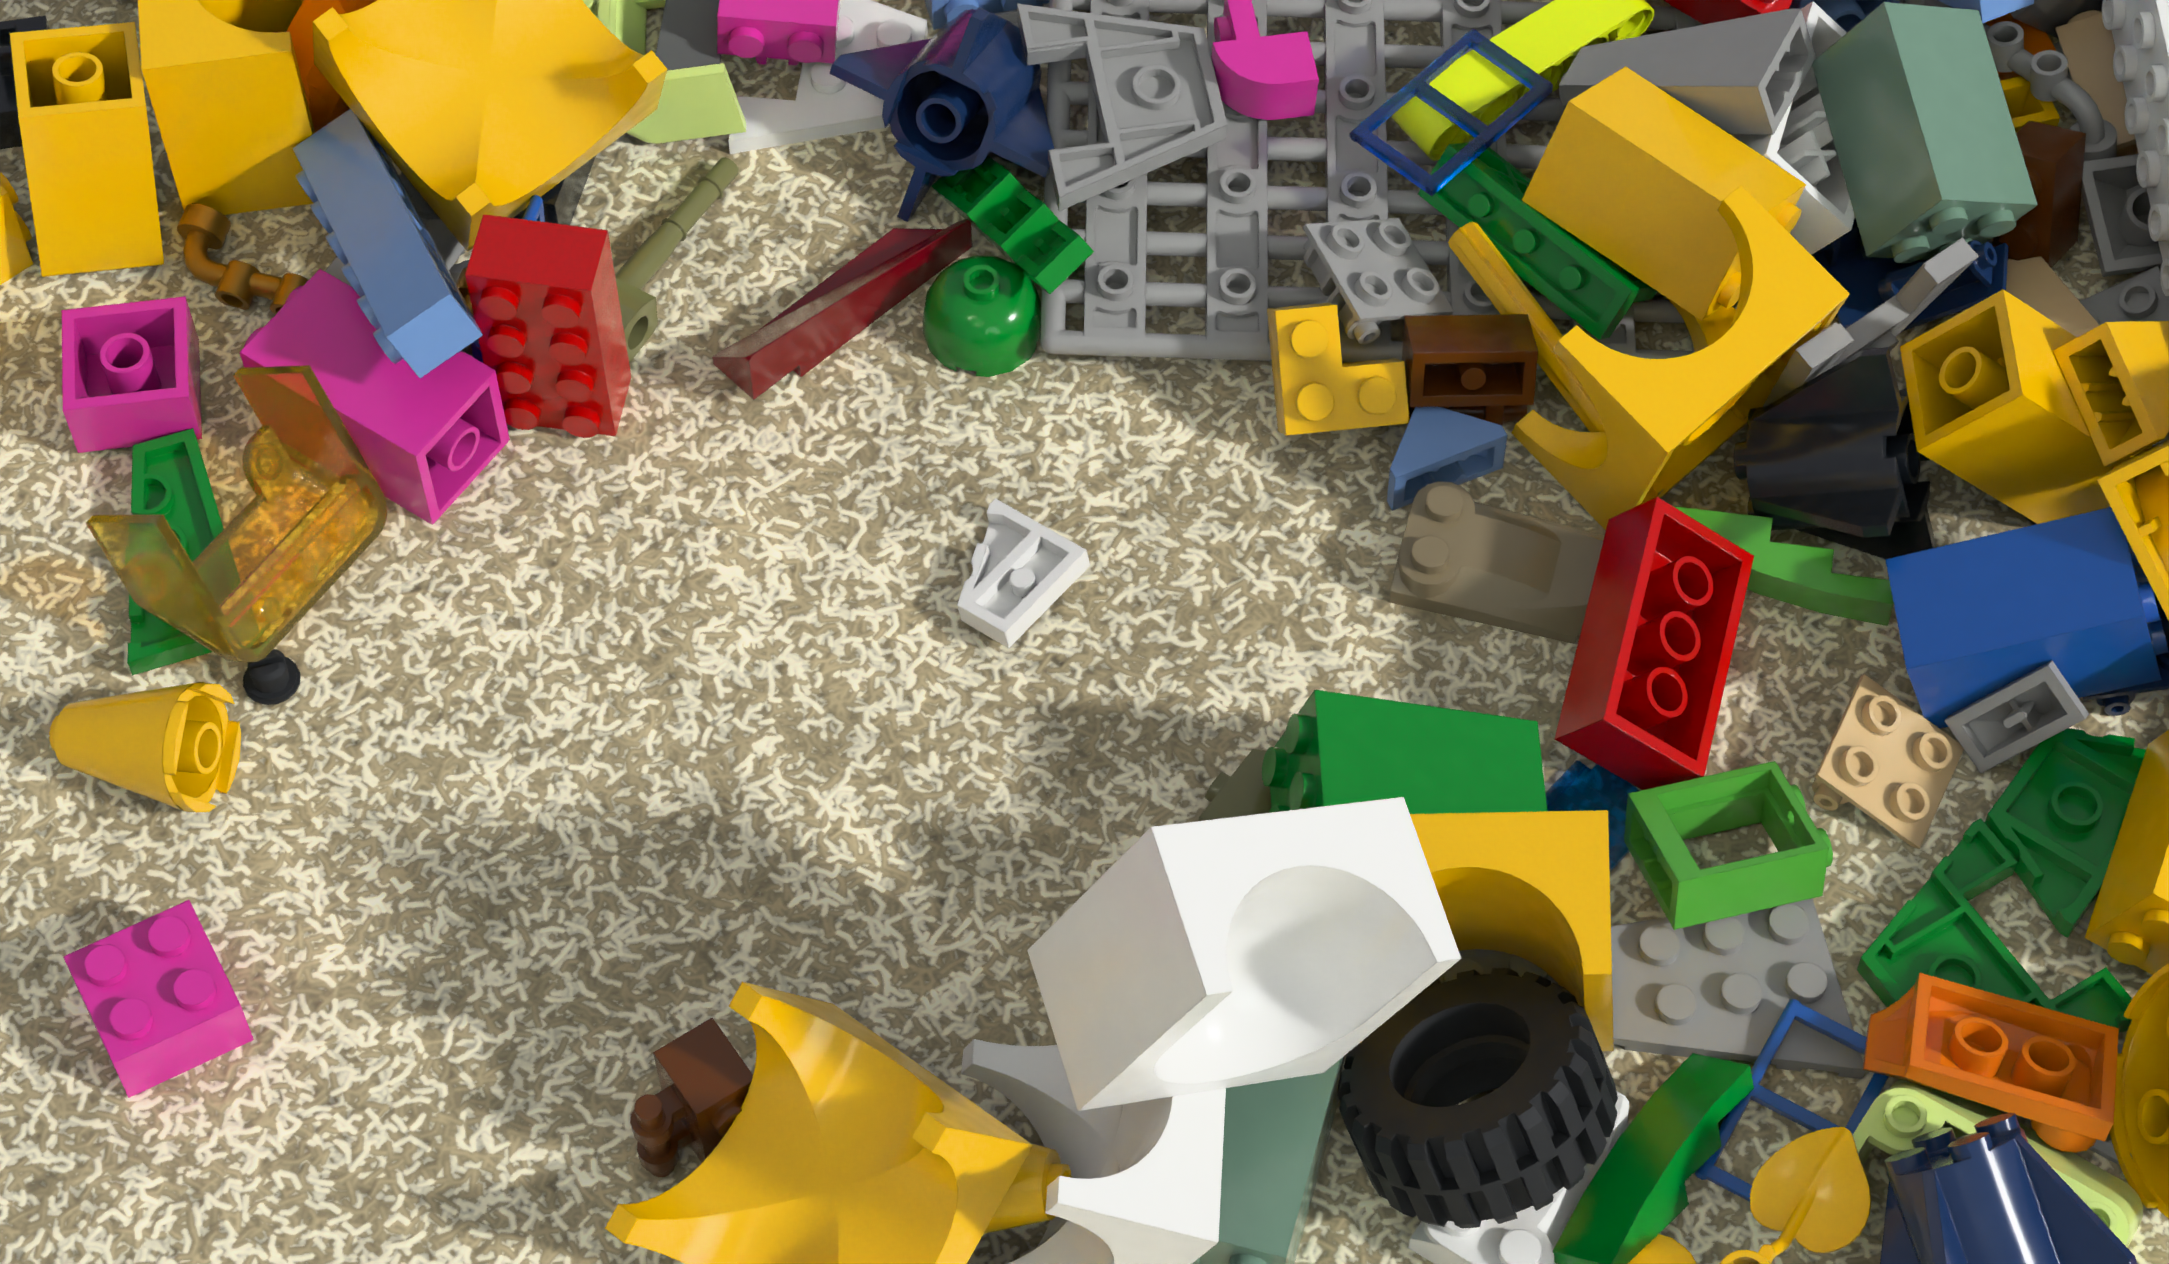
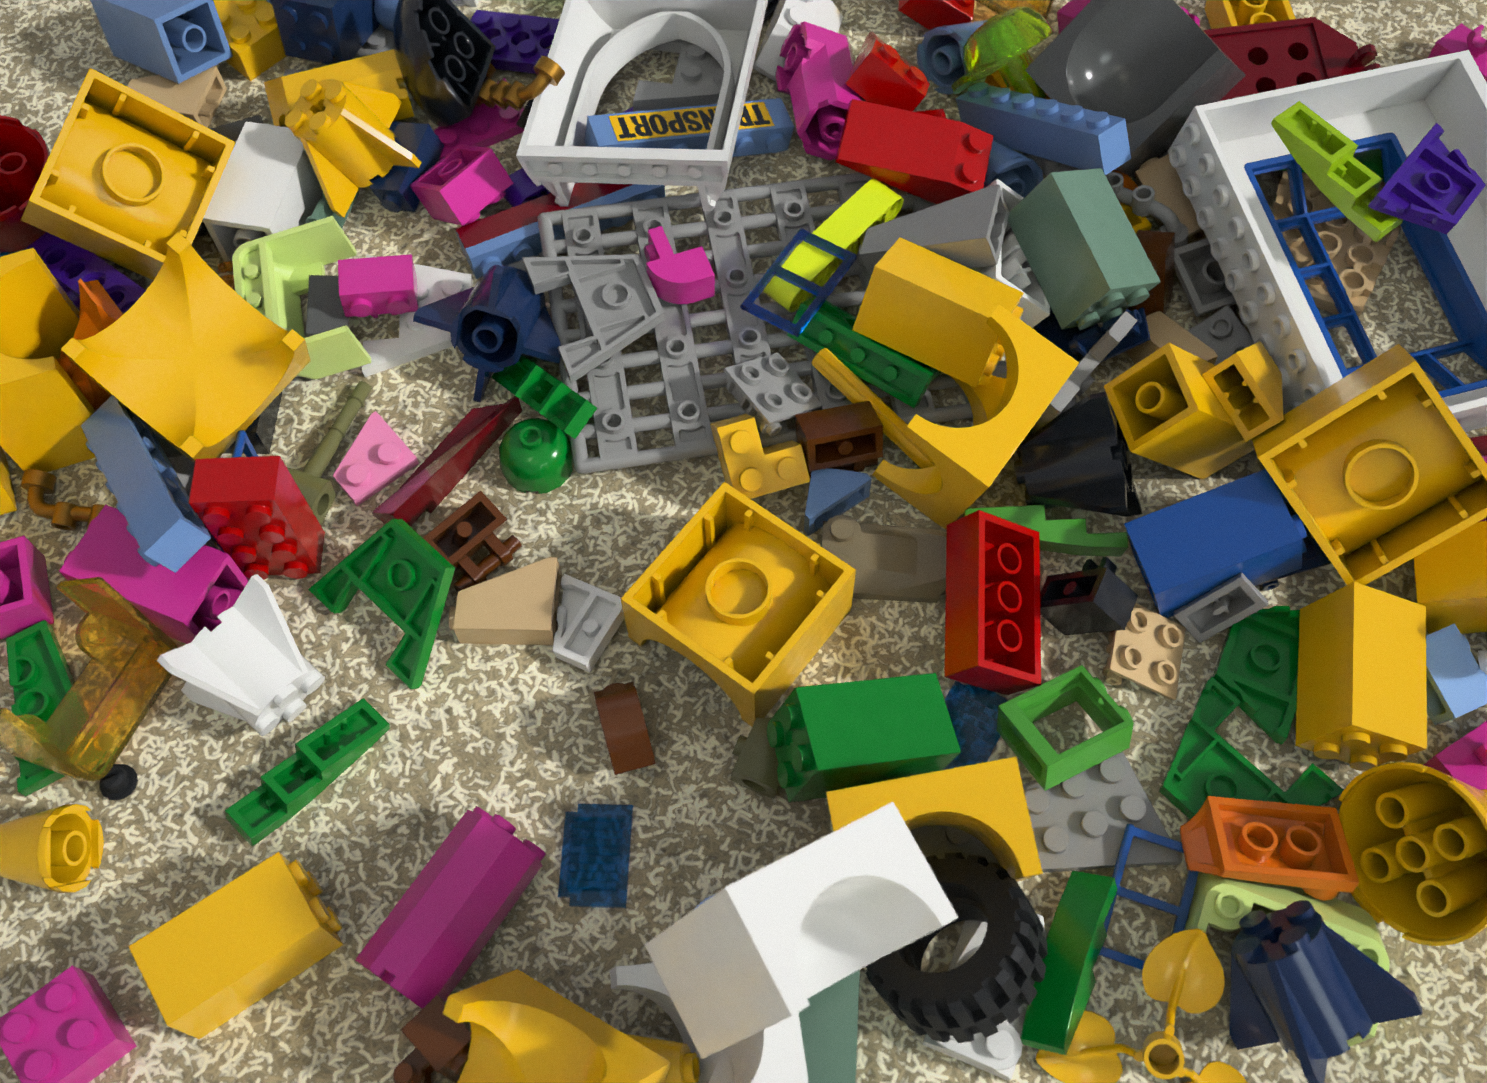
camera: 10 degrees left, 5 degrees up
(433, 917) = (237, 945): none -> yellow brick
(498, 536) = (247, 663): none -> white brick
(552, 716) = (305, 774): none -> green slope
(725, 282) = (373, 461): none -> bright pink wing
(748, 458) = (405, 581): none -> green wing
(749, 918) = (452, 908): none -> dark pink brick
(849, 413) = (467, 532): none -> reddish brown brick
(903, 531) = (510, 607): none -> tan slope
(970, 907) = (596, 856): none -> window
(1047, 730) = (624, 727): none -> reddish brown brick
(1264, 570) = (741, 599): none -> yellow piece
(1805, 669) = (1087, 599): none -> black brick

